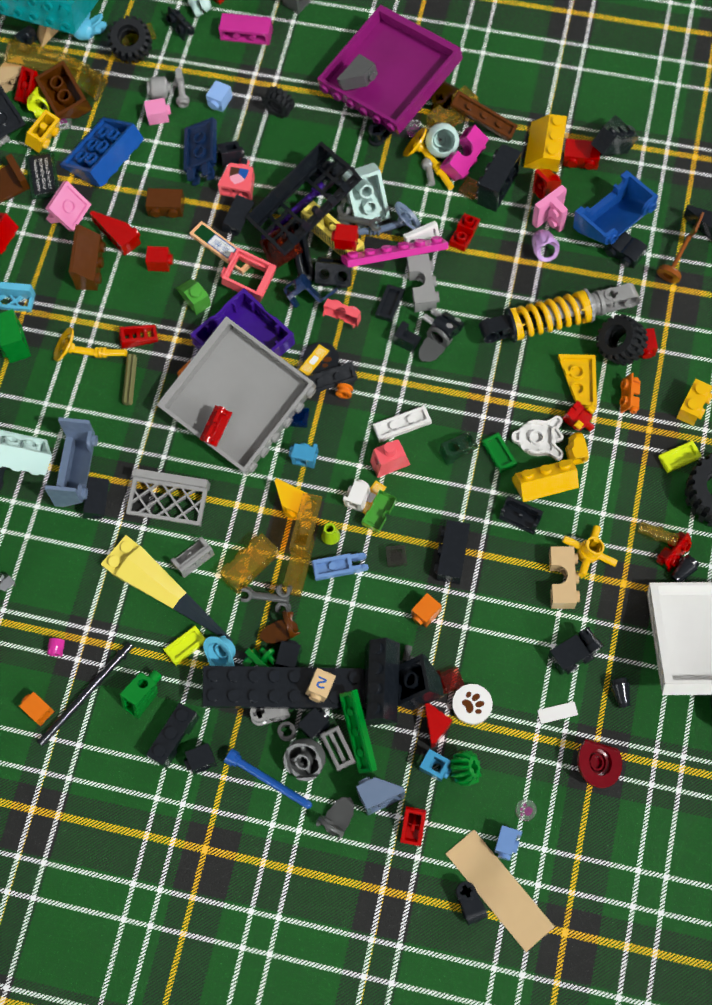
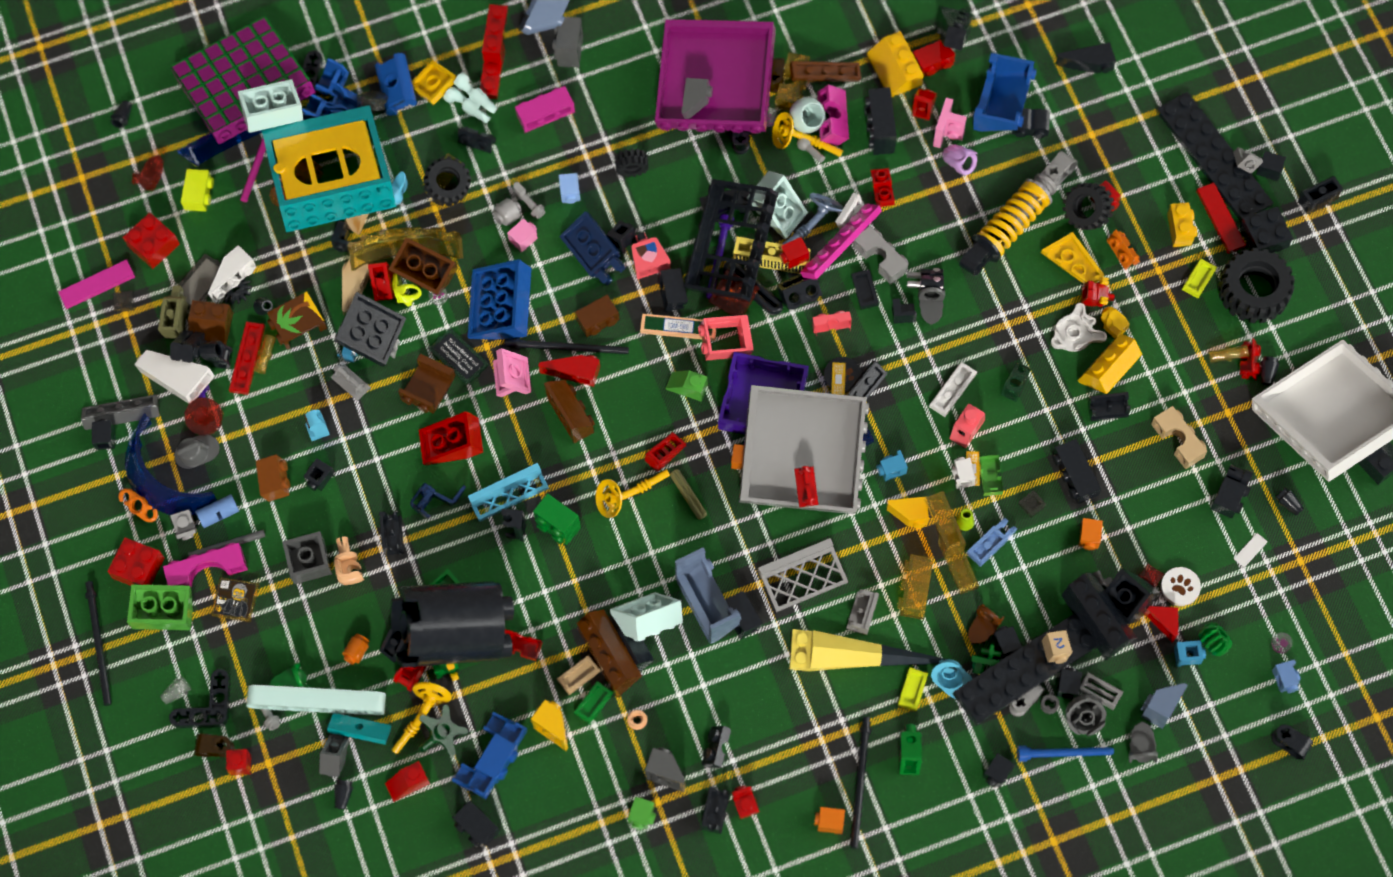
camera: 35 degrees left, 0 degrees up
(42, 131) = (432, 315): yellow brick -> none
(55, 647) = (806, 760): dark pink hose -> none
(92, 190) = (565, 346): none -> black bar
(158, 258) = (631, 370): red brick -> none
(178, 725) = (963, 767): black arch -> none
(281, 597) = (966, 600): dark grey bar -> none
(302, 283) = (783, 319): dark blue piece -> none
(344, 390) = (884, 390): orange bush -> none
(345, 218) = (774, 235): dark grey bar -> none
(358, 731) = (1110, 665): green tile -> none
(413, 826) = (1206, 711): red slope -> none
(469, 188) = (858, 144): clear orange tile -> none
(499, 452) = (1051, 364): green tile -> none
(500, 890) = (1305, 717): tan sticker -> none
(590, 550) = (1186, 401): yellow bar -> none
(599, 764) = (1314, 569): dark red hat -> none
(670, 273) = (1083, 123): dark orange piece -> none

